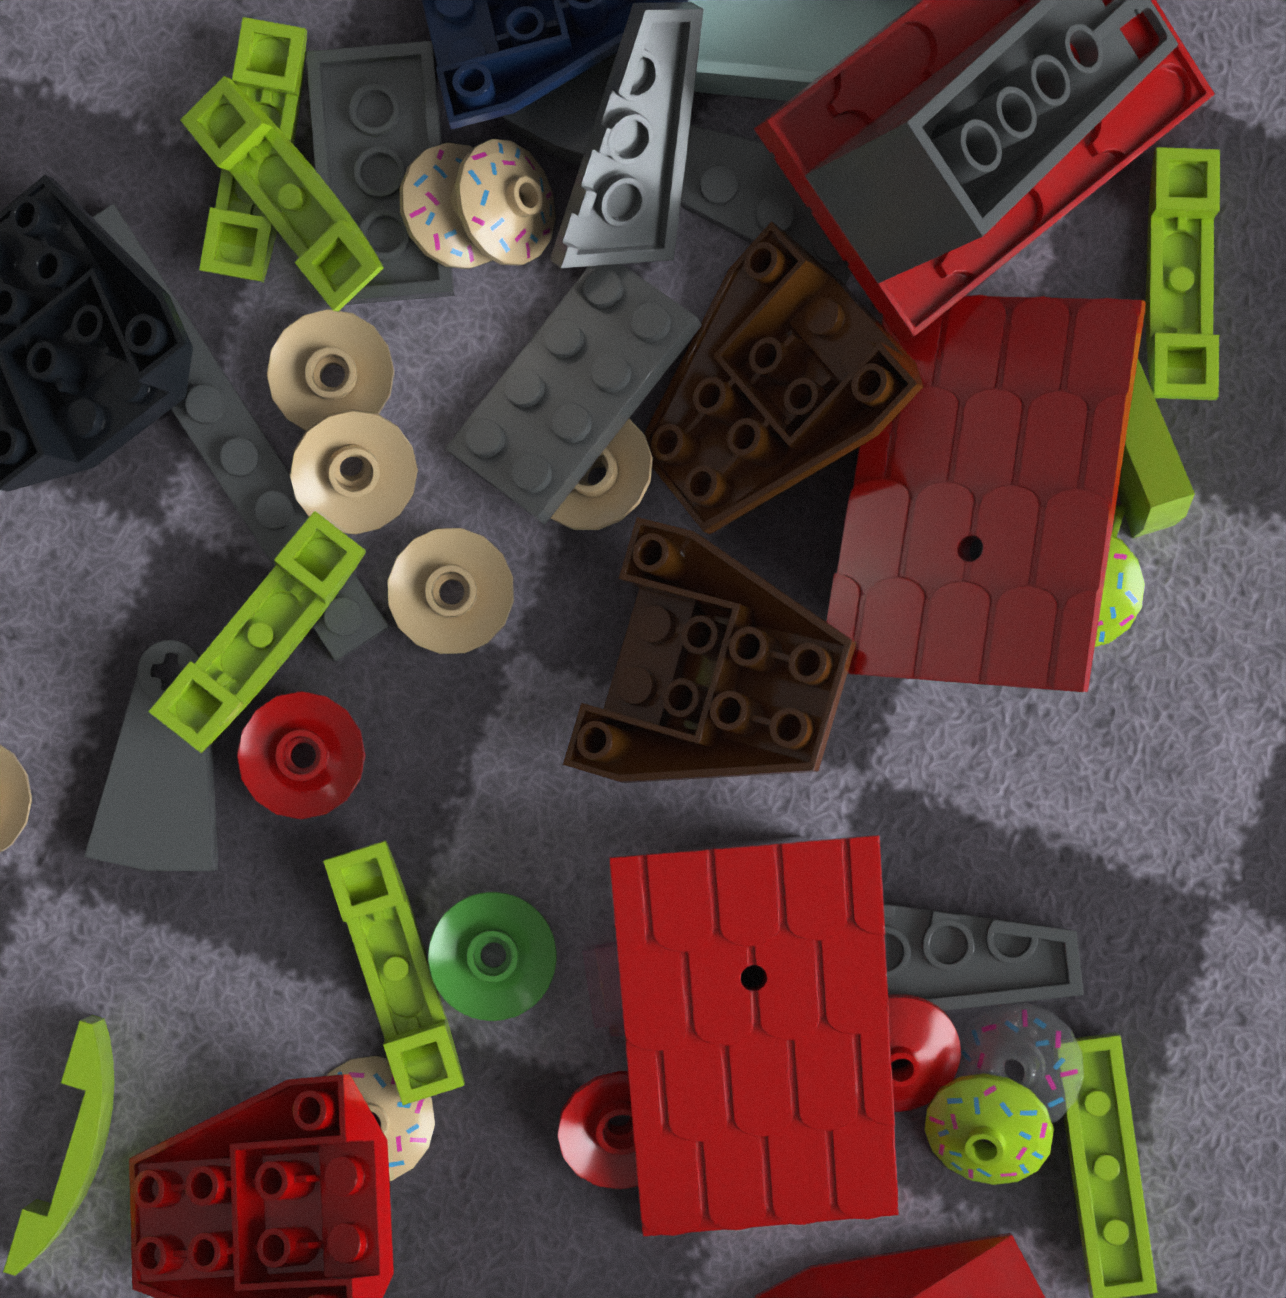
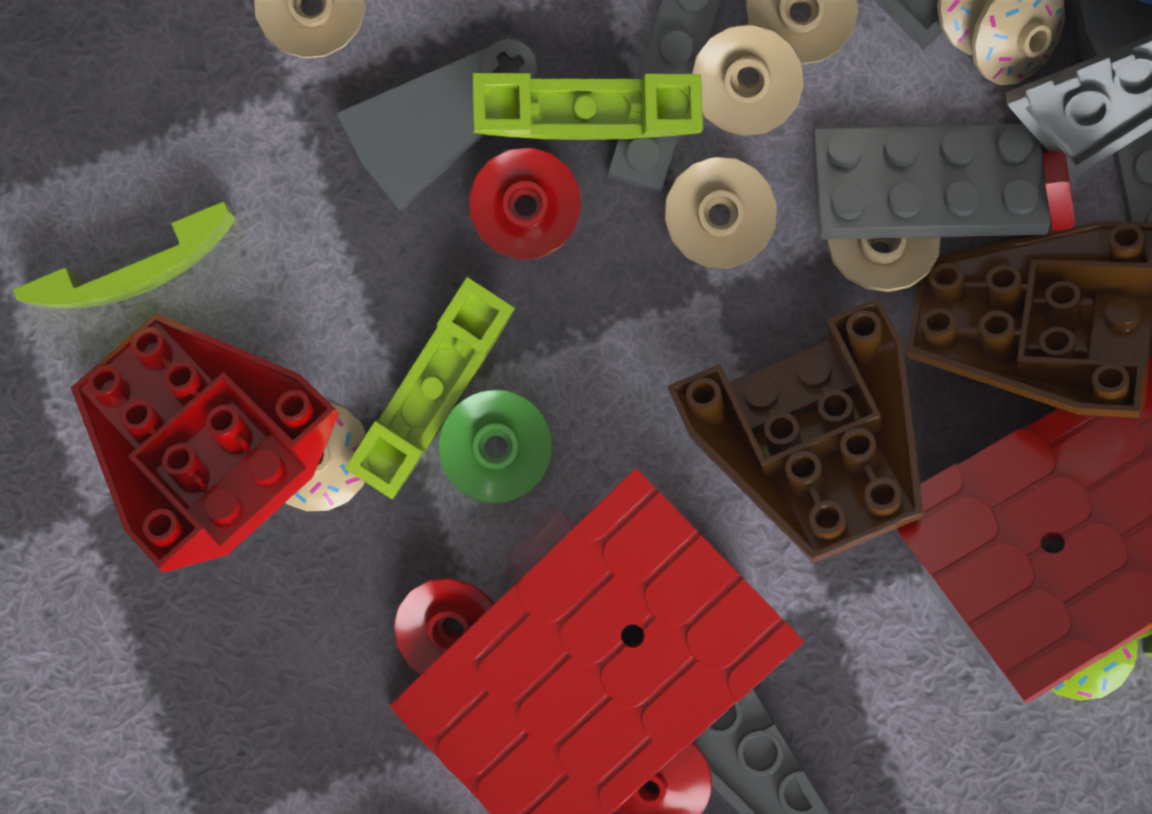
camera: 55 degrees right, 0 degrees up
(673, 282) = (1059, 190): none -> red tile

